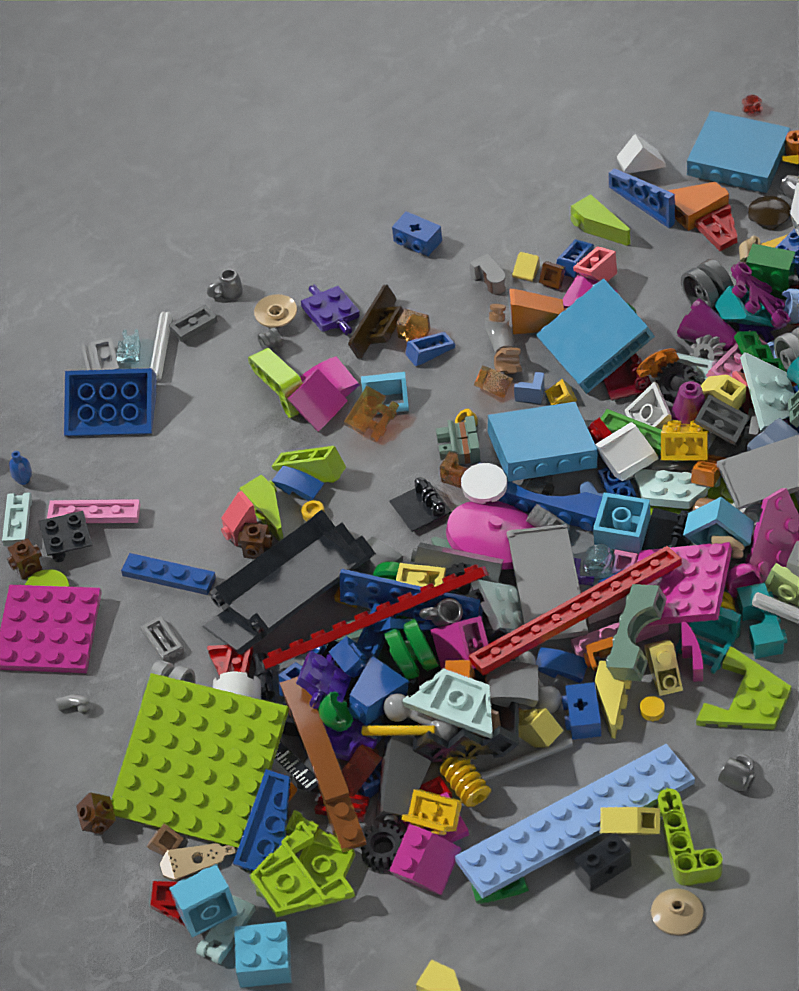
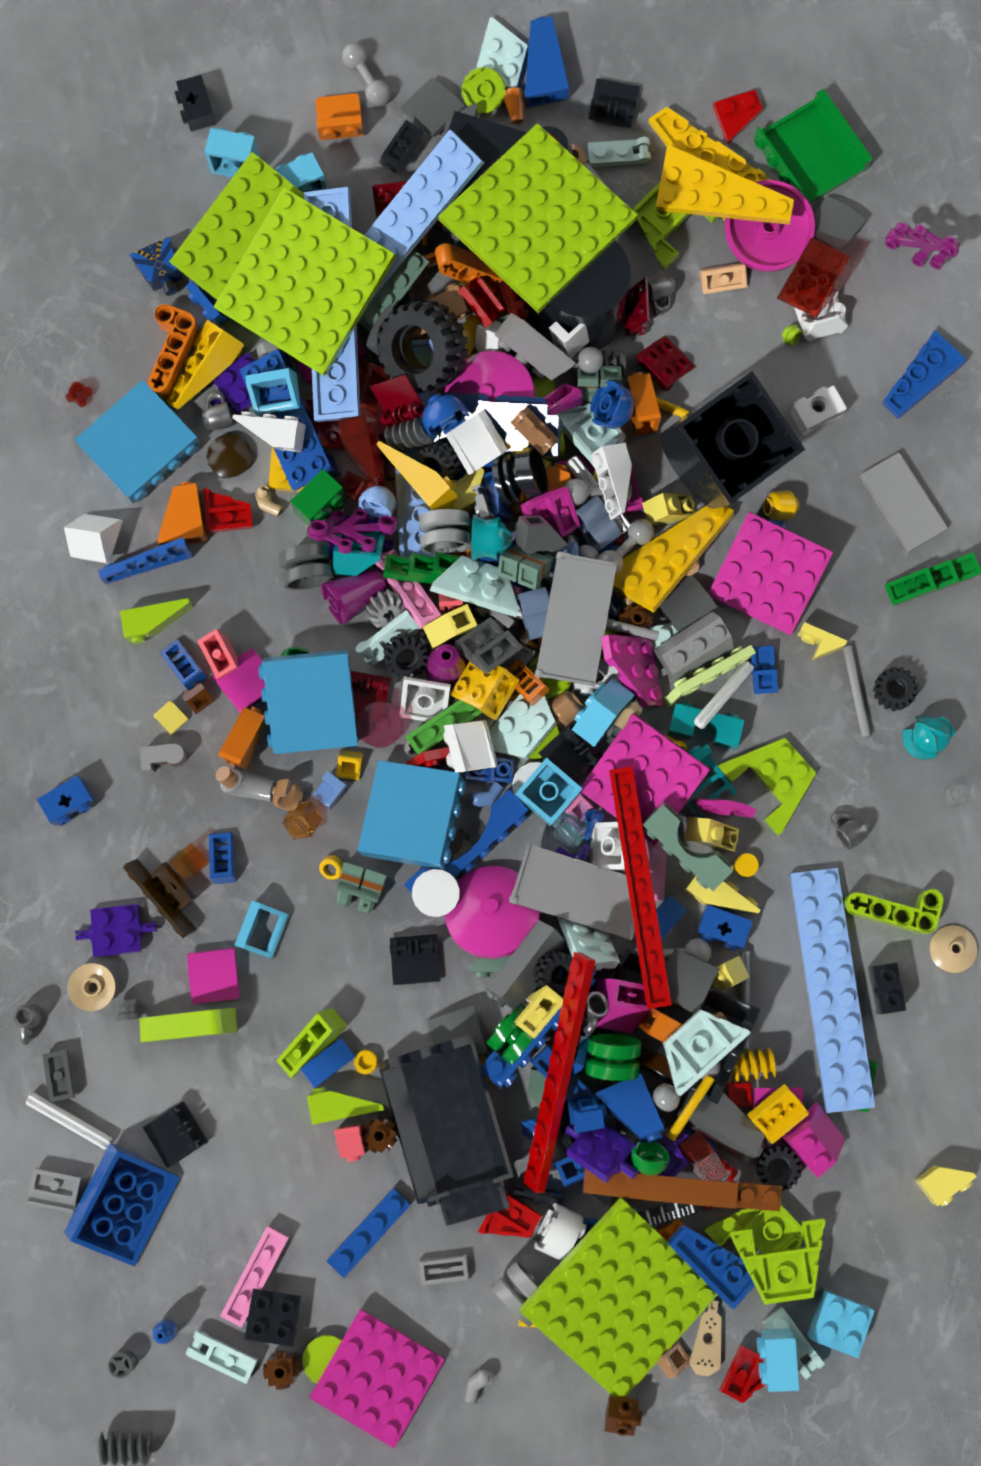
camera: 70 degrees left, 30 degrees up
(130, 348) = (57, 1156): clear light blue plate -> none
(185, 414) = (175, 1134): none -> black hinge
(317, 400) = (240, 1000): dark pink slope -> none
(365, 410) = (277, 960): clear orange plate -> none
(451, 471) = (394, 906): clear orange panel -> none
(541, 517) = (501, 856): light grey hinge -> none
(600, 648) = (672, 882): orange bracket -> none
(608, 394) = (379, 724): none -> clear pink tile
(630, 820) = (865, 946): light yellow slope -> none
(656, 361) = (380, 663): orange dish -> none
(742, 576) = (659, 717): dark pink hair -> none

